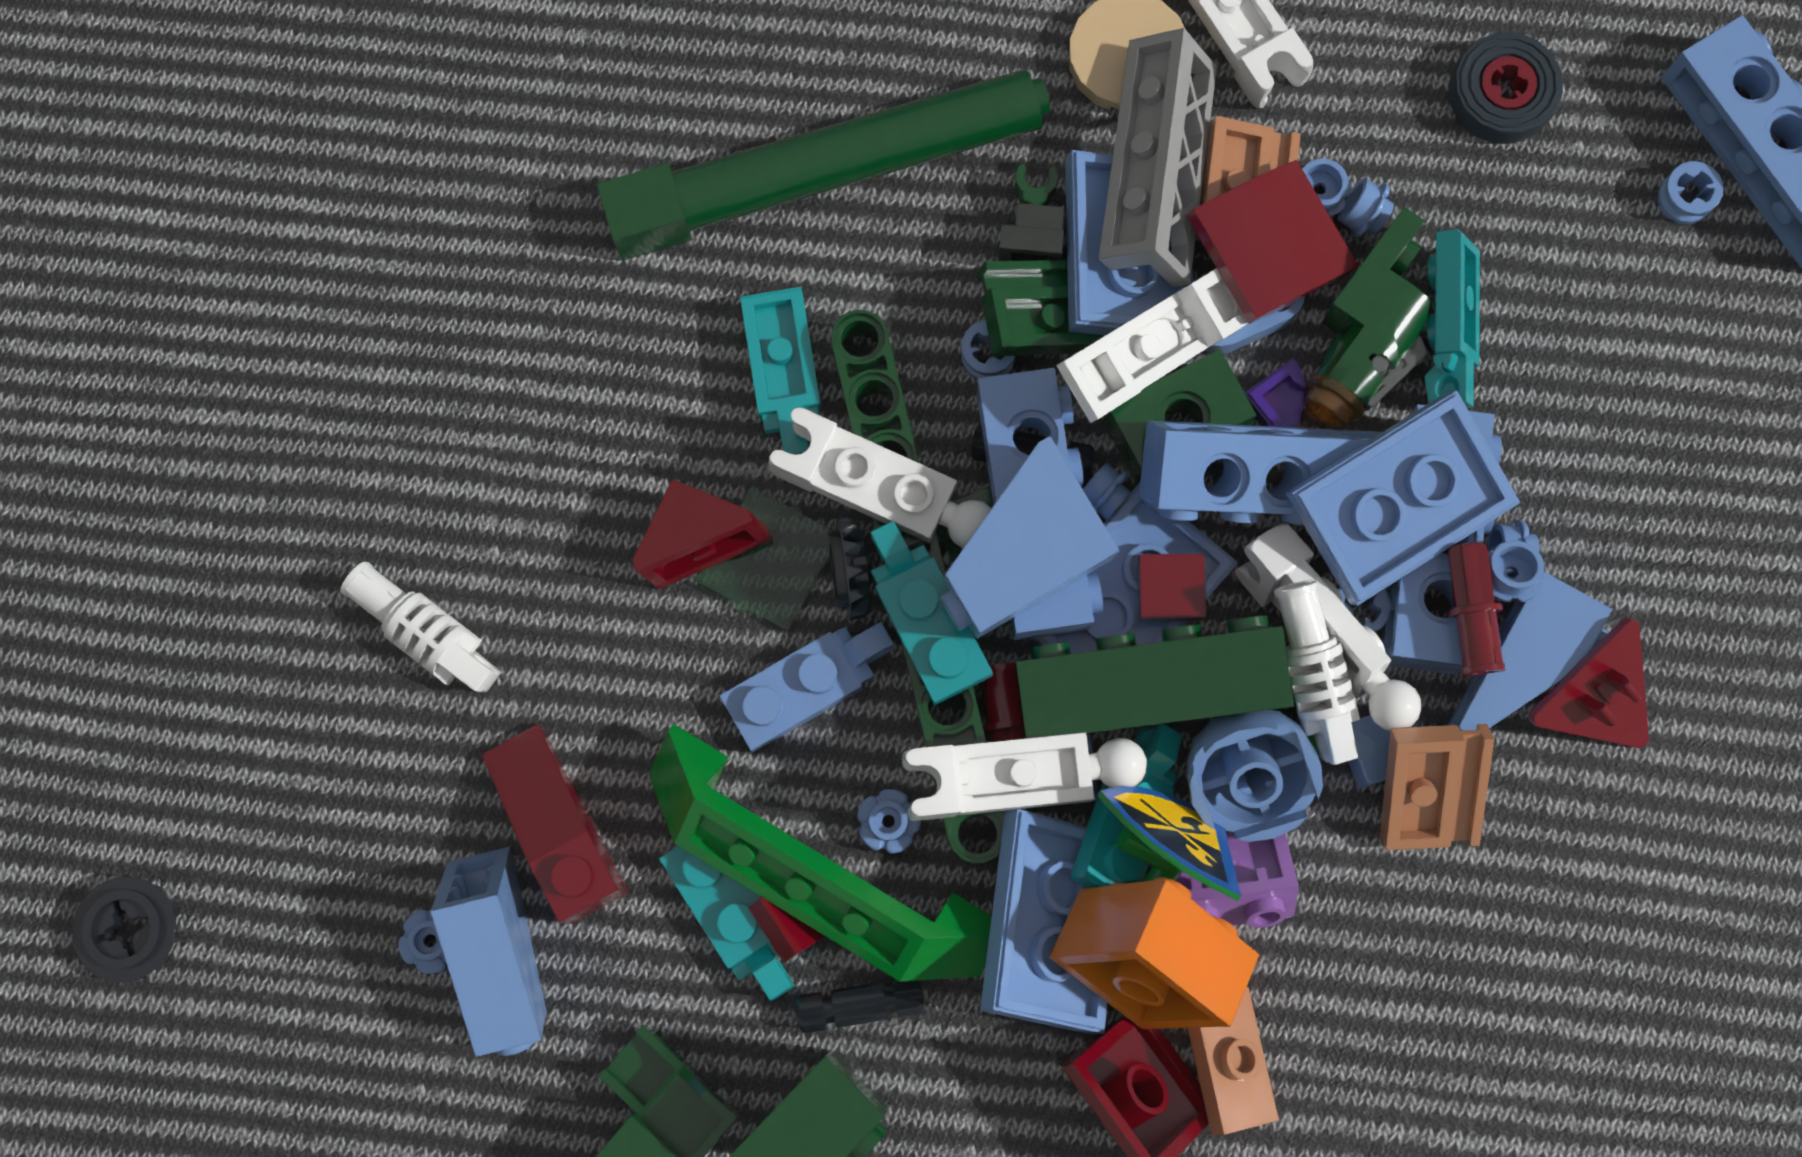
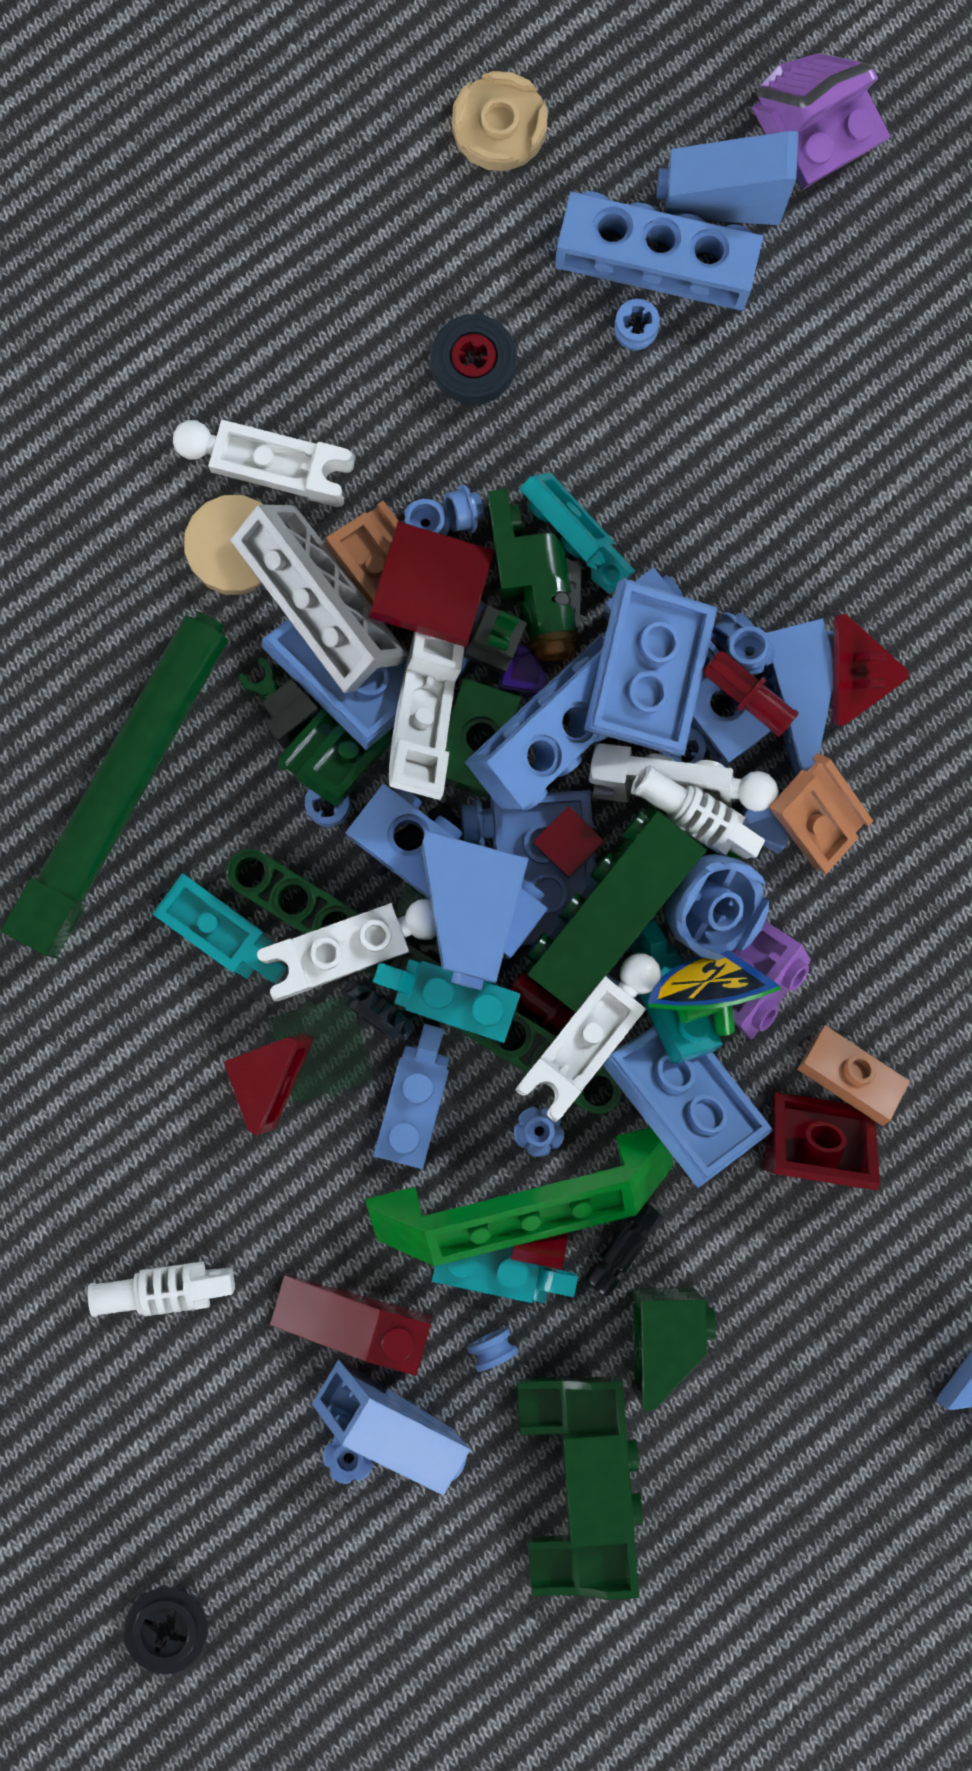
camera: 55 degrees left, 5 degrees up
(651, 974) = (492, 1349): none -> medium blue bush
(1155, 955) = (762, 1061): orange brick -> none
(1283, 343) = (495, 639): none -> pearl dark grey piece

